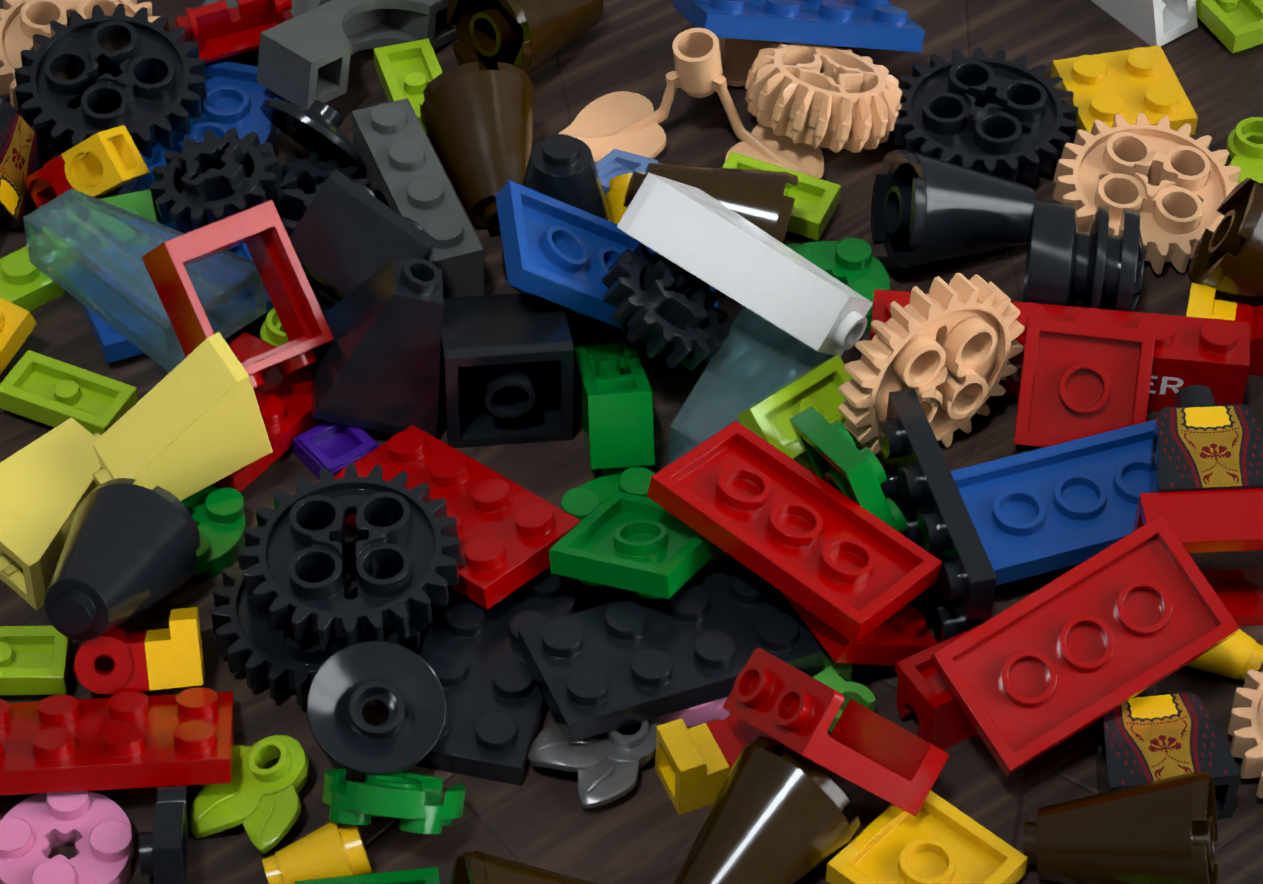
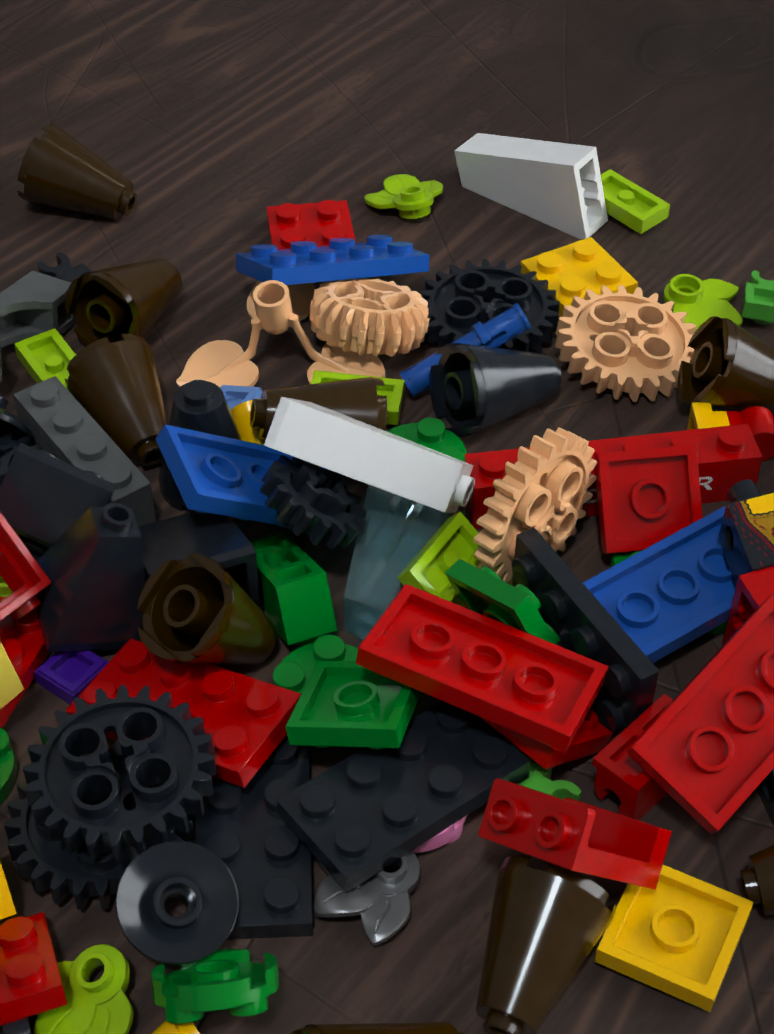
camera: 15 degrees left, 0 degrees up
(496, 412) = (202, 616): none -> dark brown cone
(699, 758) = (464, 876): yellow leg -> none
(960, 148) = (490, 334): none -> blue pin
(1083, 266) = (611, 405): black wheel -> none

